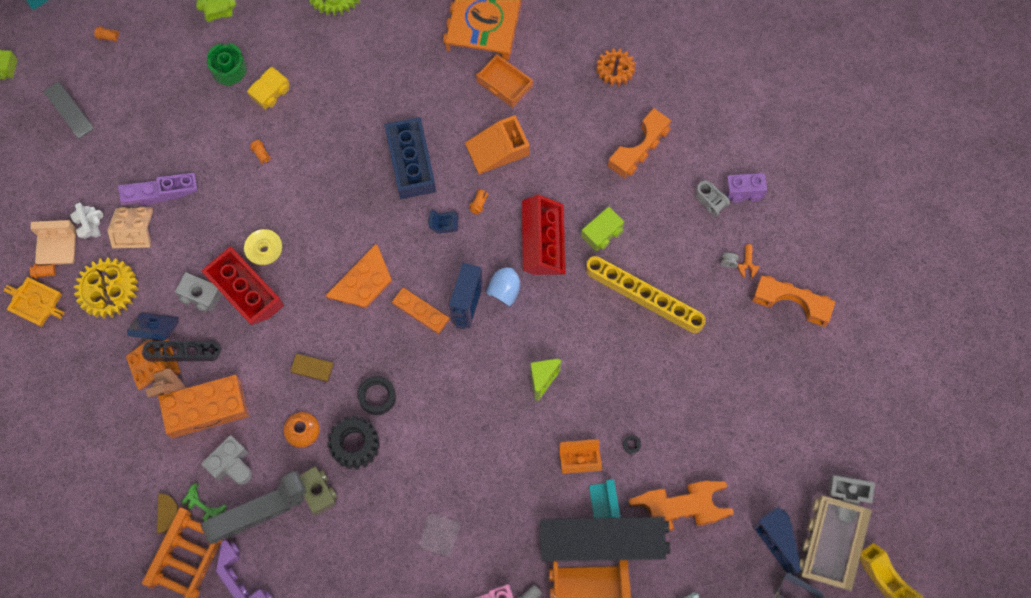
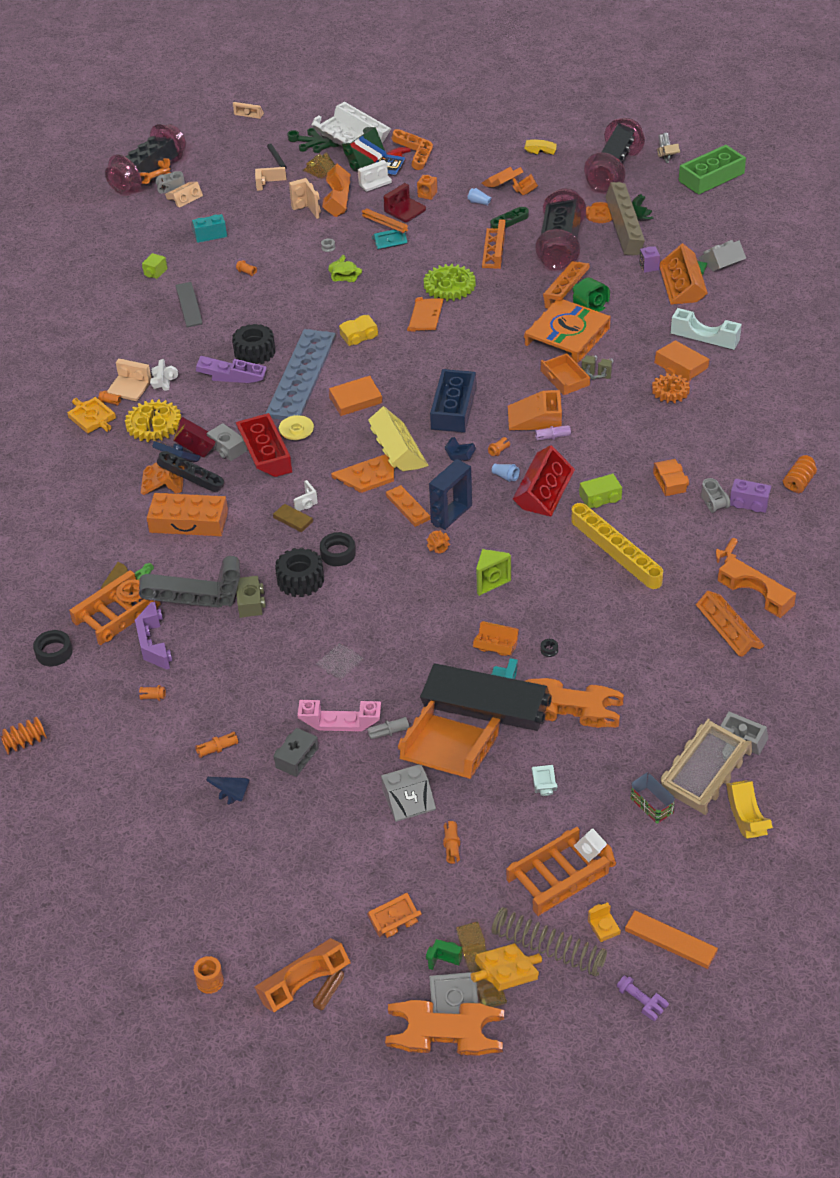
camera: 25 degrees right, 25 degrees down
(130, 227) = (193, 389): light nougat bracket -> none
(161, 300) = (193, 437): none -> dark red bracket
(165, 383) = (162, 485): nougat slope -> none
(169, 159) = (253, 343): none -> black tyre
(187, 531) = (125, 589): none -> orange gear
(226, 64) = (332, 305): green brick -> none
(227, 461) = (186, 554): light grey brick -> none
(244, 174) = (307, 380): none -> sand blue plate
(259, 150) = (328, 366): orange pin -> none
(305, 181) = (355, 395): none -> orange container
(305, 438) = (262, 559): orange piece -> none
(319, 343) = (307, 500): none -> white bracket
(326, 45) = (425, 314): none -> orange door
(376, 232) = (396, 441): none -> light yellow slope
(473, 352) = (438, 541): none -> orange gear
(500, 233) = (506, 471): none -> light blue cone
(504, 285) = (491, 503): light blue piece -> none
(523, 164) = (551, 433): none -> lavender axle
(541, 64) = (604, 367): none -> olive piece
(611, 26) = (681, 360): none -> orange container
(625, 160) = (647, 451): orange arch -> none
(661, 187) = (670, 477): none -> orange brick
(729, 260) = (709, 543): light grey bush -> none
(779, 537) = (651, 741): dark blue slope -> none
(781, 143) = (800, 474): none -> orange piece
(784, 354) = (728, 623): none -> orange fence

